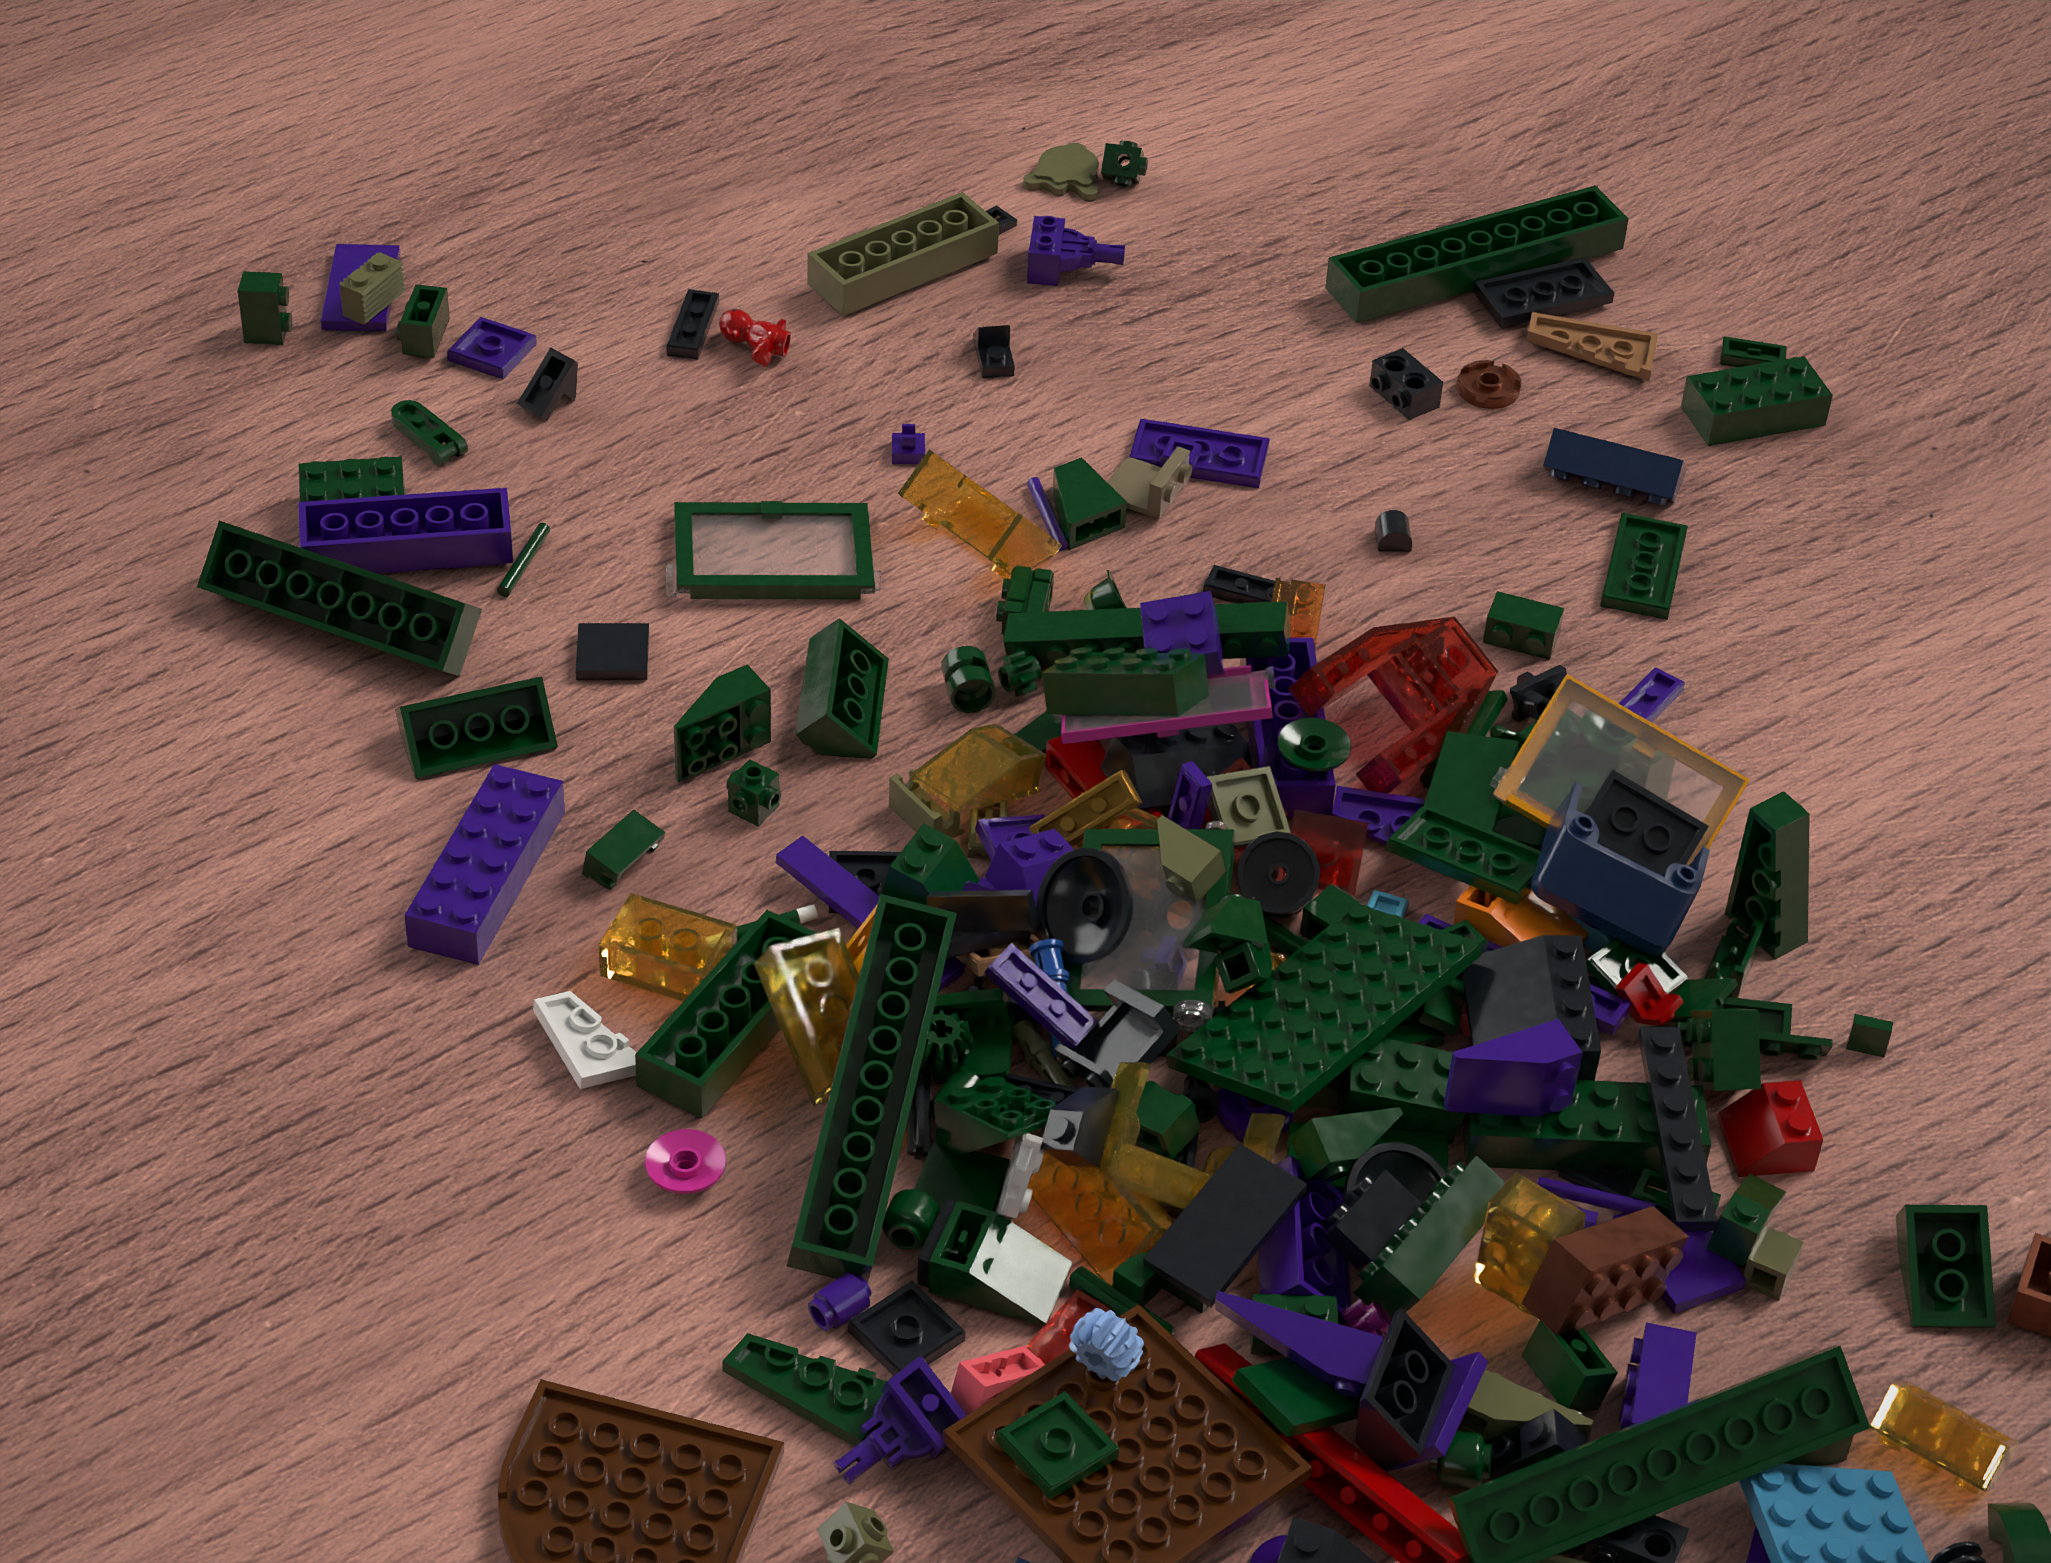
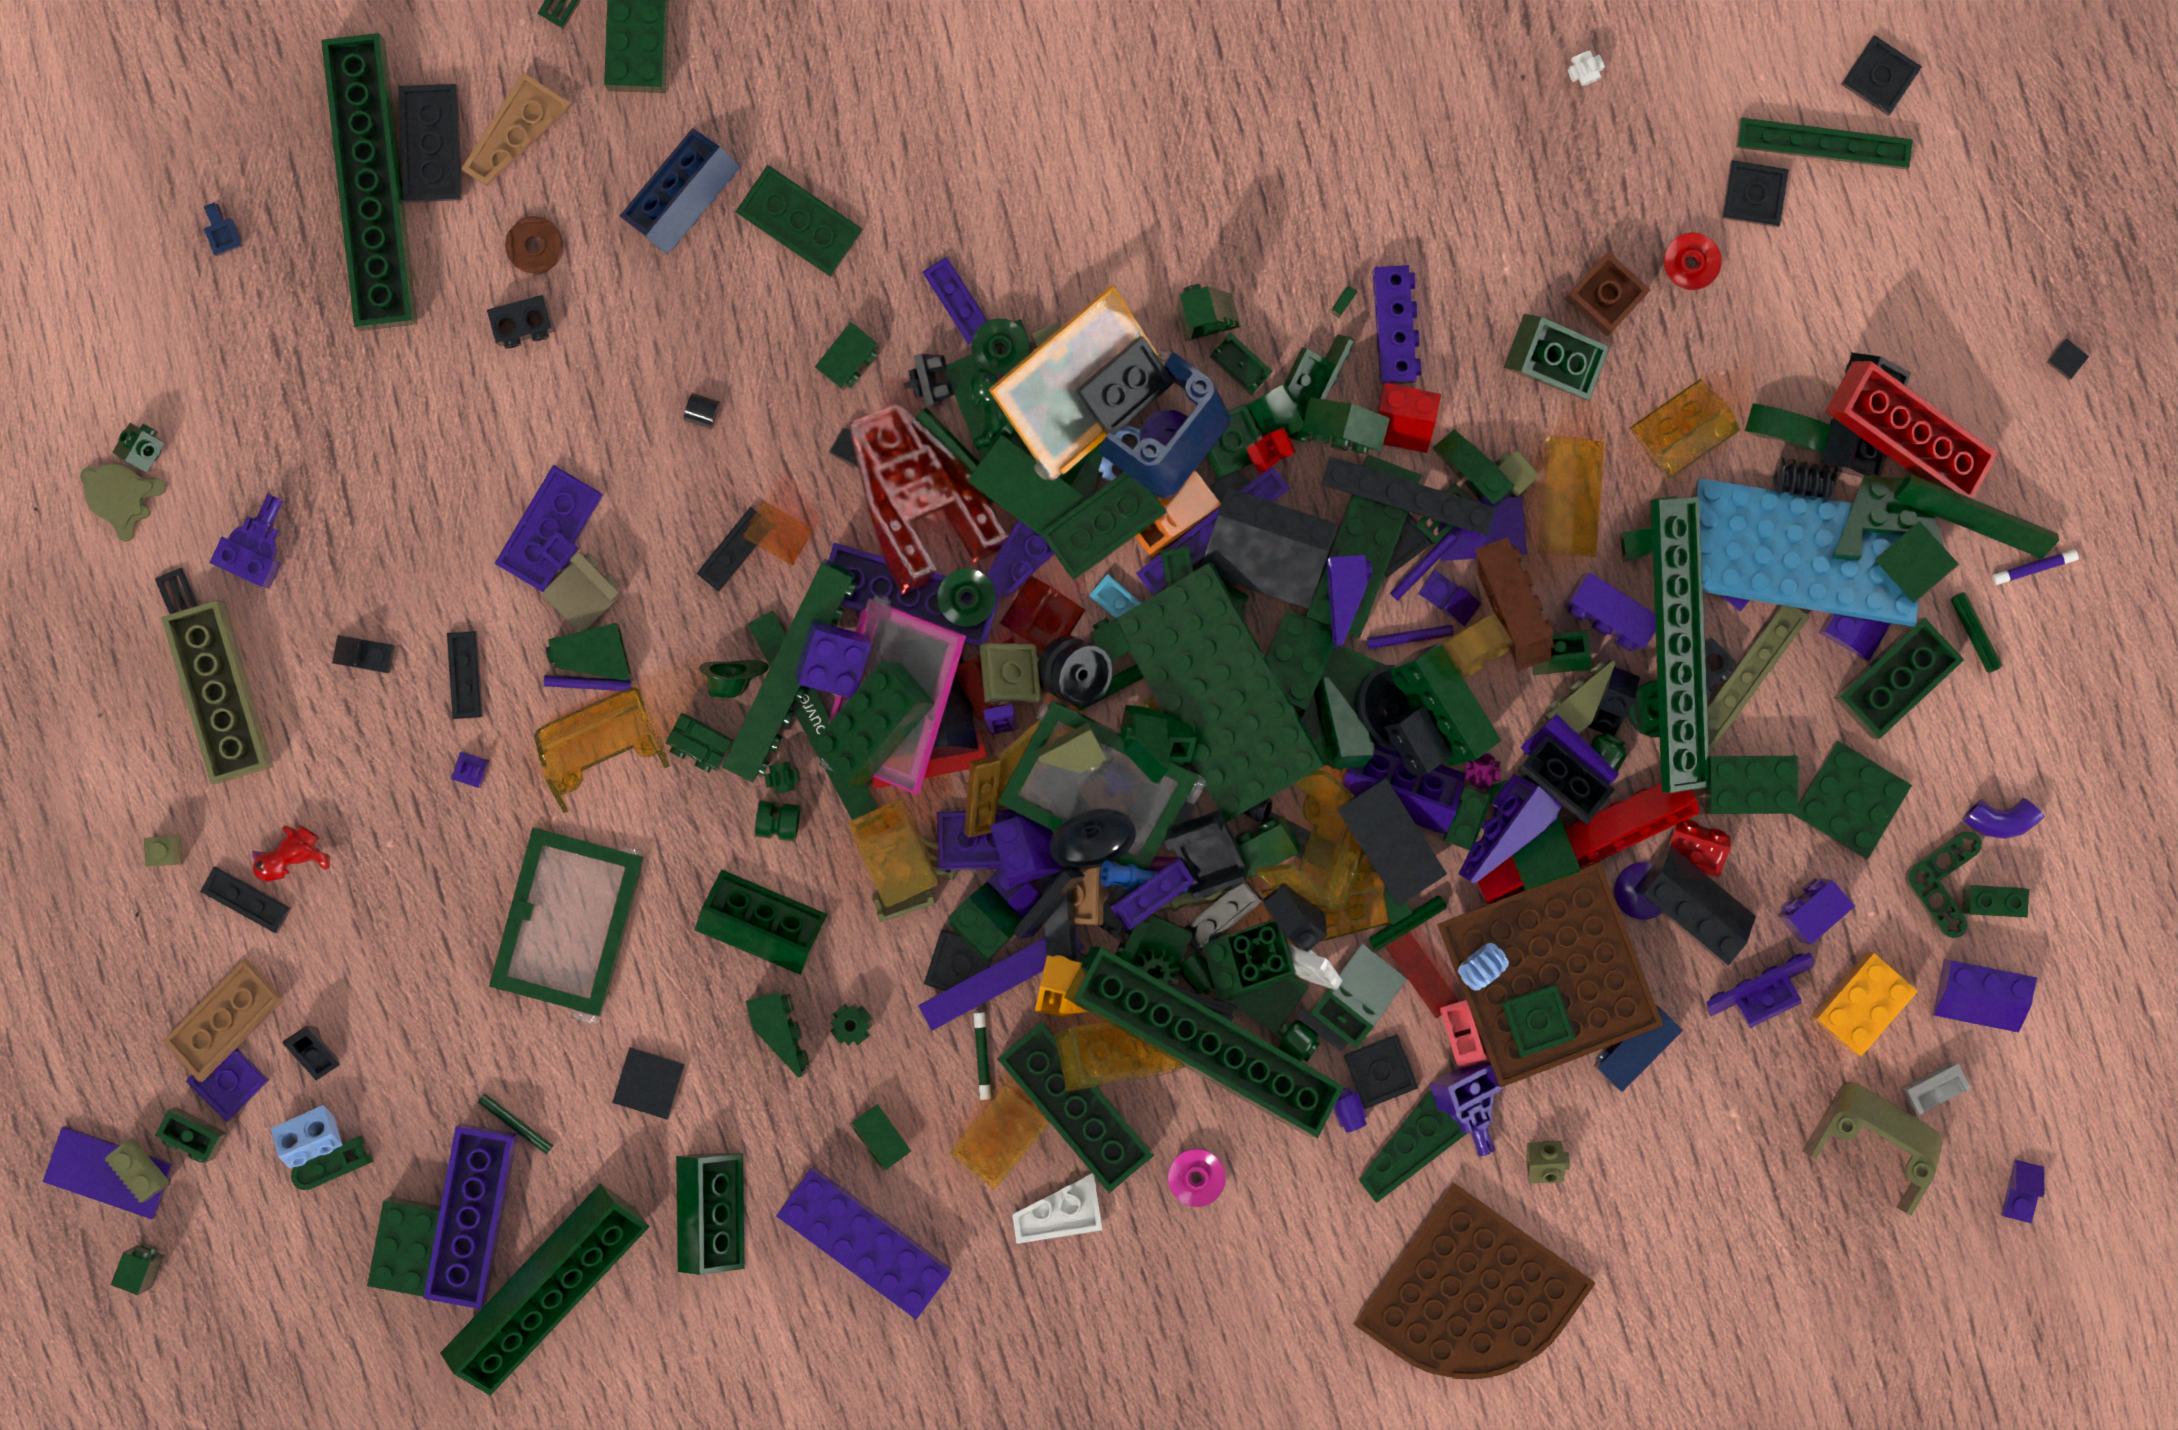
camera: 70 degrees left, 45 degrees up
(452, 400) = (304, 1132): none -> light blue brick
(557, 327) = (223, 1020): none -> medium nougat tile
(720, 253) = (163, 851): none -> olive brick
(1008, 425) = (464, 675): none -> black tile
(1365, 181) = (222, 233): none -> dark blue plate
(1776, 1323) = (1571, 496): none -> clear yellow slope
(1880, 1089) = (1395, 324): none -> dark purple brick

